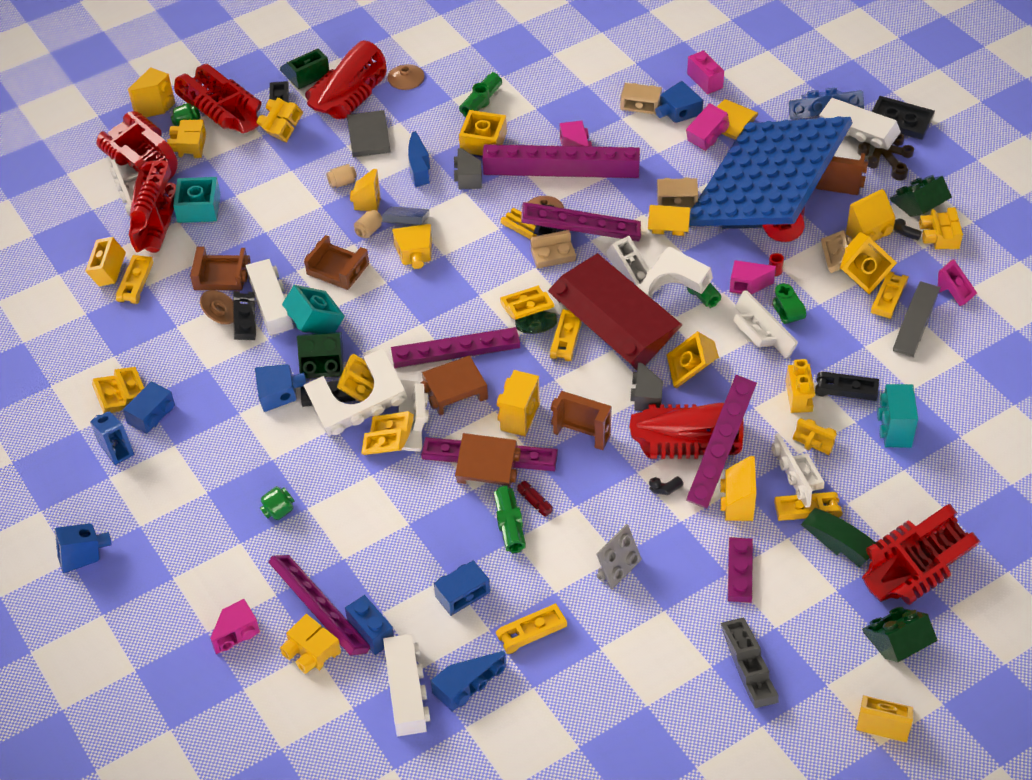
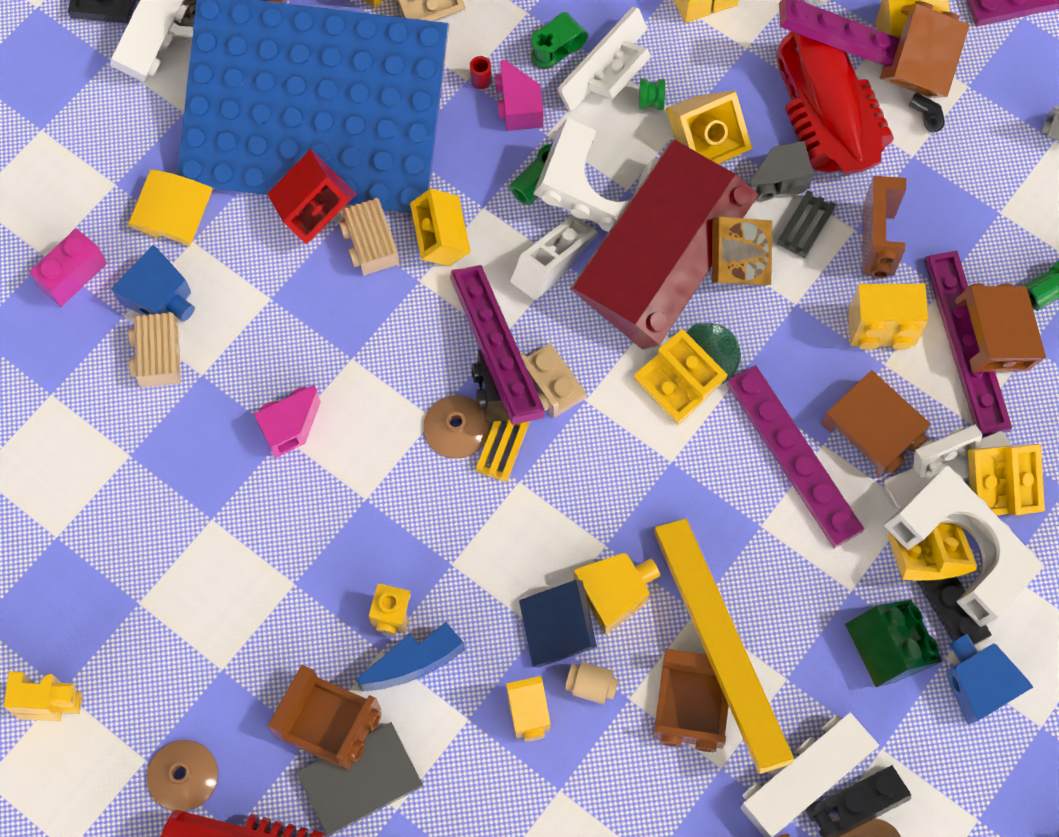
camera: 110 degrees left, 20 degrees up
(312, 310) = (832, 677): teal brick -> none
(341, 176) = (491, 775): tan brick -> none
(357, 270) = (723, 647): none -> yellow tile
(404, 120) = (325, 719): none -> dark orange panel
(445, 152) = (389, 610): none -> yellow bracket
(466, 25) = (42, 700): none -> yellow hips
(469, 170) = (416, 564): dark grey slope -> none
(481, 93) = (195, 606): green piece -> none
(482, 129) = (324, 566): yellow brick -> none
(534, 498) = (1018, 258): dark red axle -> none
(561, 161) = (351, 427): magenta brick -> none
(565, 336) = (721, 307): yellow plate -> none
(594, 346) = (741, 251): none -> pearl gold tile
(609, 393) = (818, 203): none -> pearl dark grey tile
(704, 477) = (927, 51): none -> panel
(706, 164) = (310, 196): none -> red slope
(707, 127) = (211, 226): dark pink brick -> none
(730, 341) = (651, 94): none -> green wheel
(815, 101) = (94, 85): blue bracket -> none

